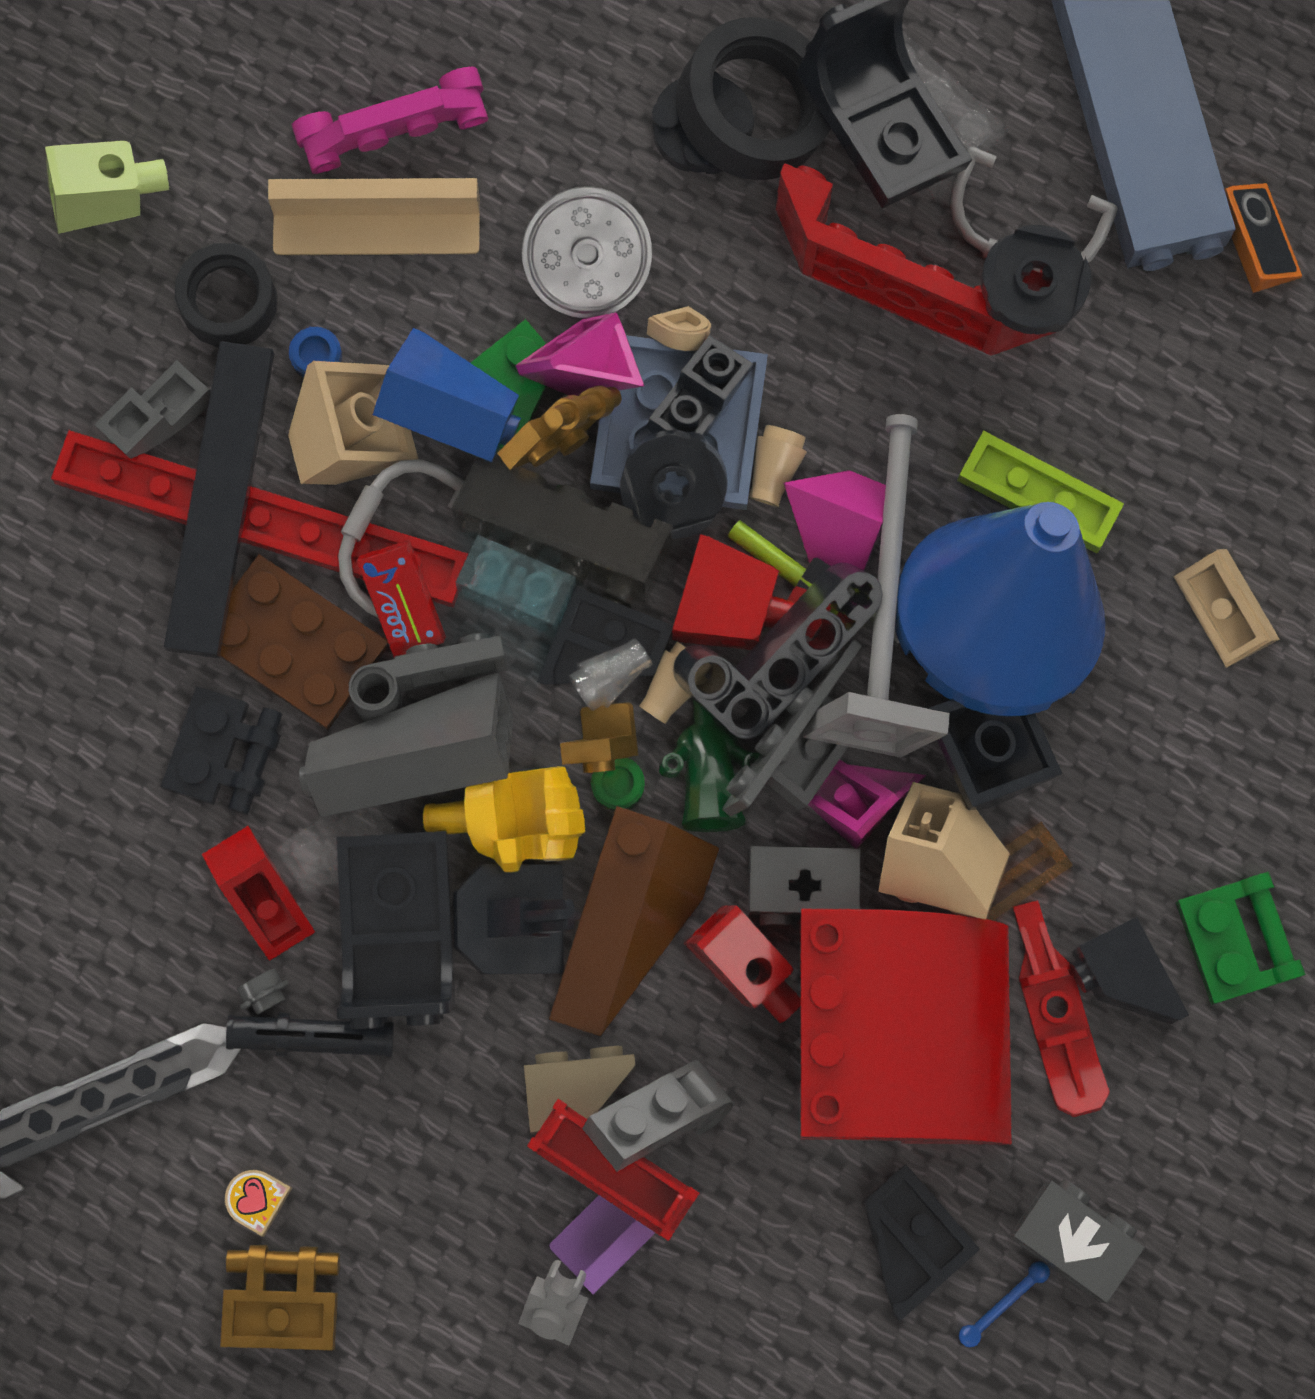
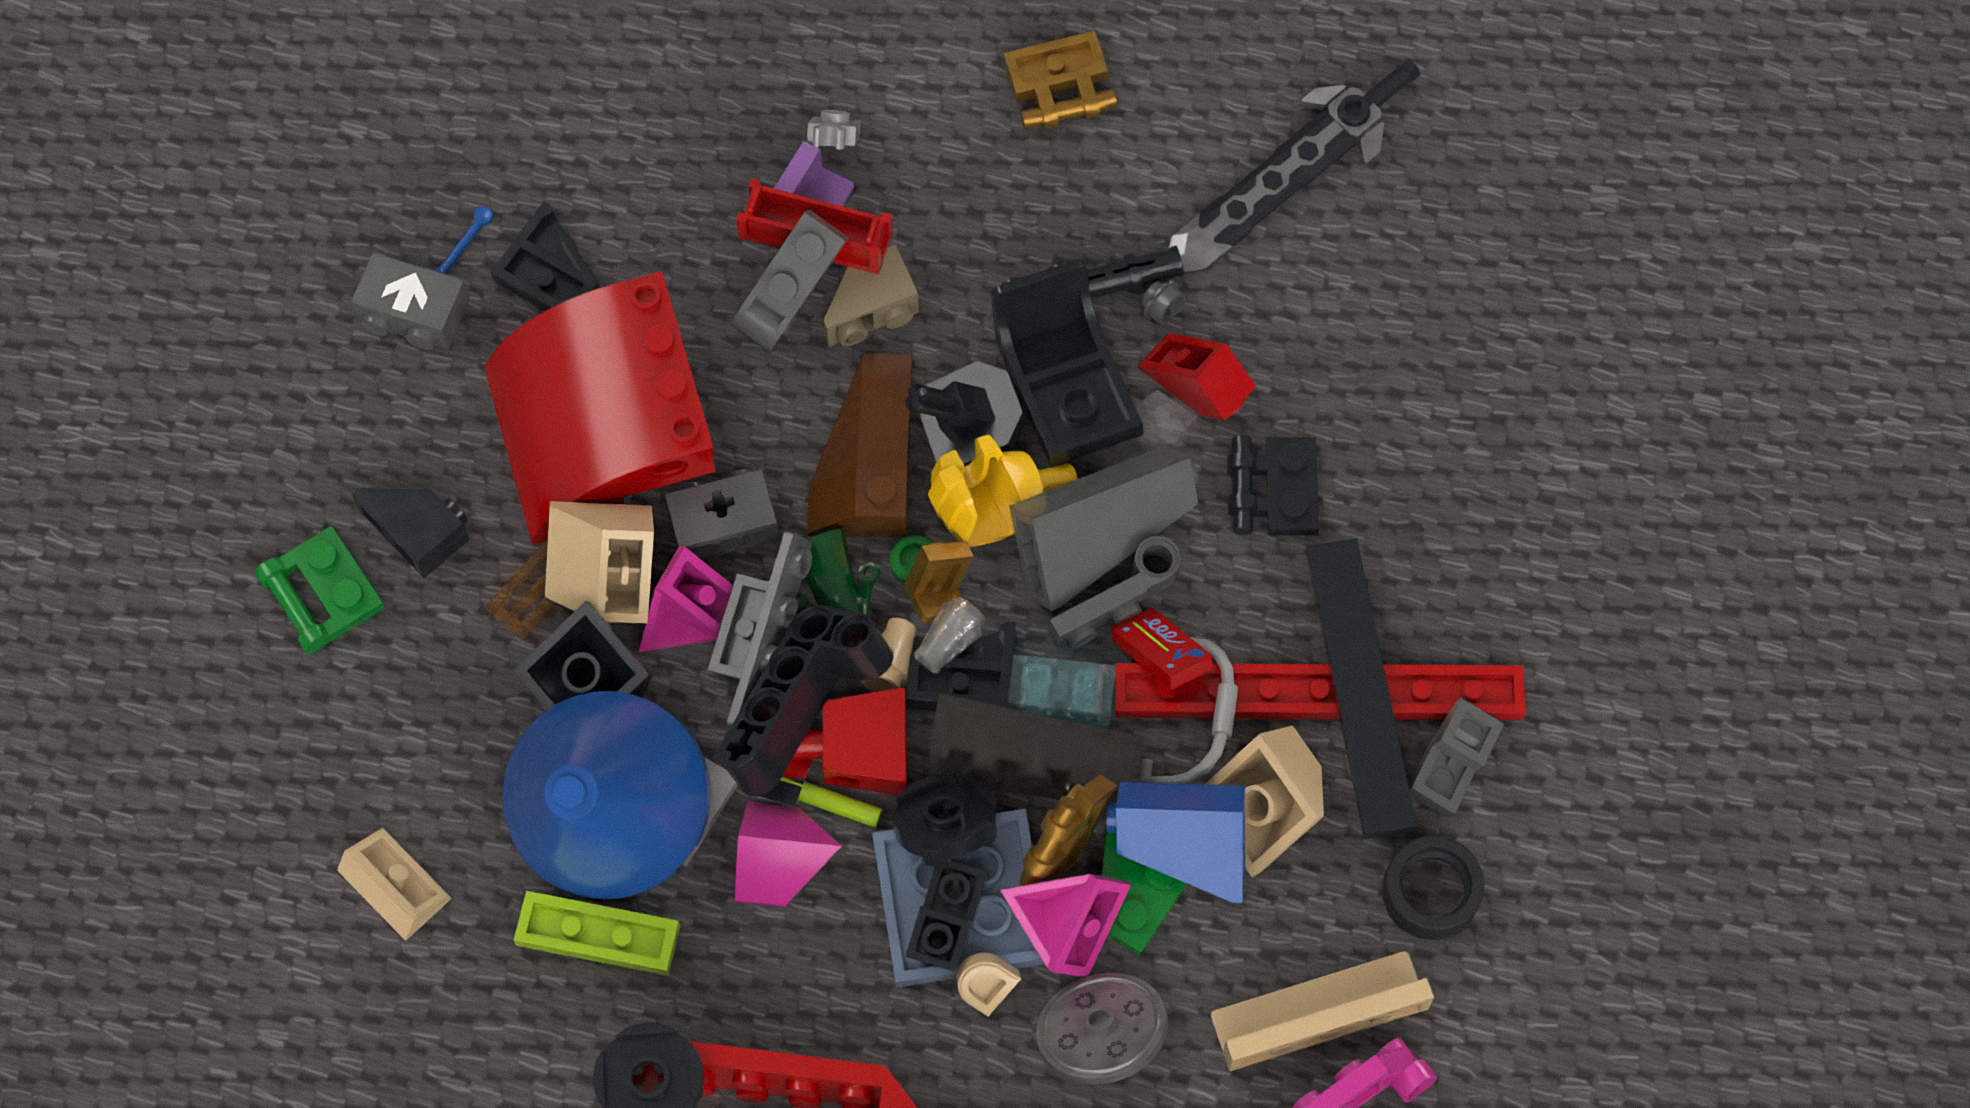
camera: 165 degrees right, 10 degrees down
(99, 183) = (1610, 932): yellowish green torso -> none
(255, 1199) = (1108, 149): tile -> none
(296, 641) = (1244, 597): reddish brown plate -> none
(313, 345) = (1329, 864): blue tile -> none
(726, 947) = (760, 433): red torso -> none
(775, 462) = (857, 885): tan cone -> none
(873, 720) = (691, 649): light grey tile -> none
(1066, 1041) = (454, 462): red piece -> none

